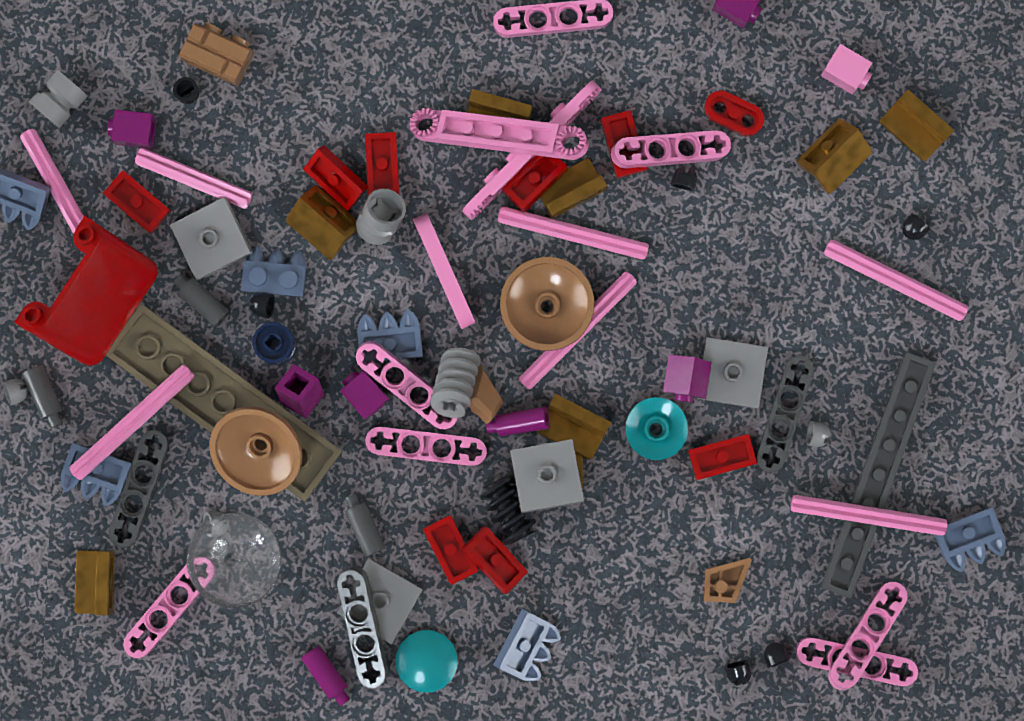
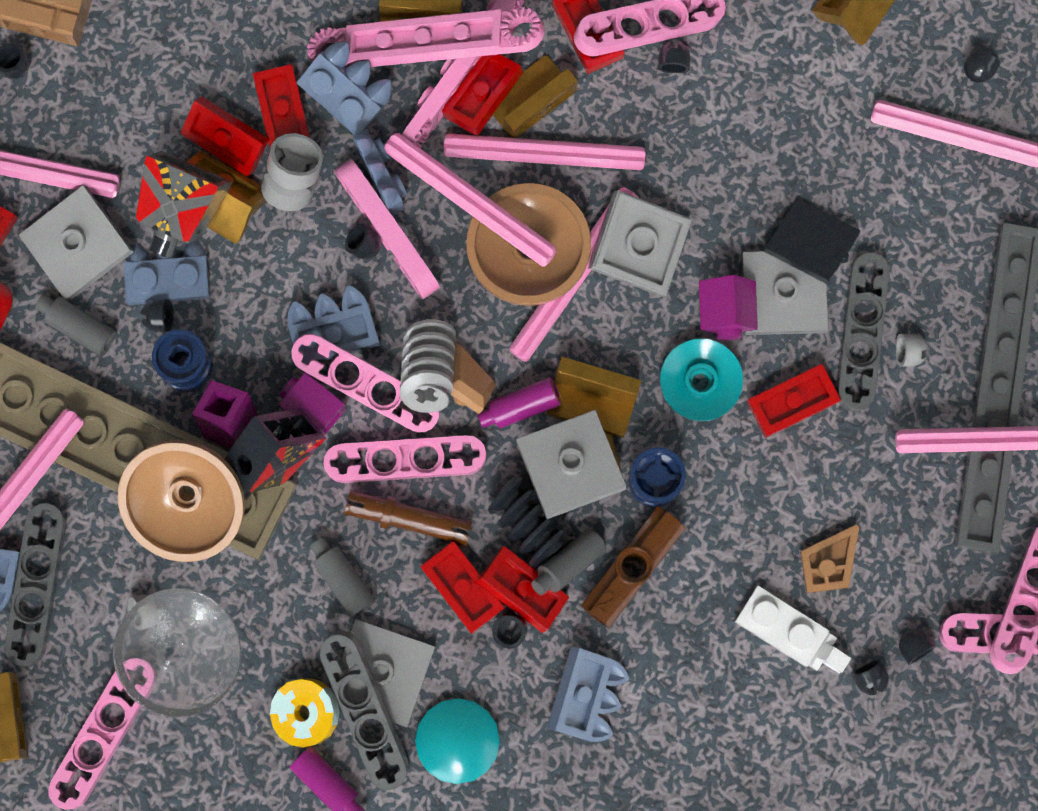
camera: 15 degrees left, 5 degrees down
(292, 223) = (177, 200): none -> torso
(306, 624) = (287, 718): none -> yellow piece
(317, 428) = (273, 449): none -> black torso
(420, 490) = (407, 517): none -> reddish brown pin
(424, 277) = (363, 242): none -> black hinge
(431, 158) = (344, 89): none -> sand blue plate
(444, 213) = (373, 157): none -> sand blue plate
(475, 582) = (503, 624): none -> black hinge
(509, 263) = (470, 199): none -> bright pink axle
(532, 546) = (569, 562): none -> dark grey cylinder
(594, 543) = (650, 546): none -> reddish brown piece
(608, 496) = (656, 477): none -> dark blue wheel
(630, 317) = (639, 243): none -> light grey plate
(685, 627) = (790, 631): none -> white hinge
(760, 339) = (812, 241): none -> black piece

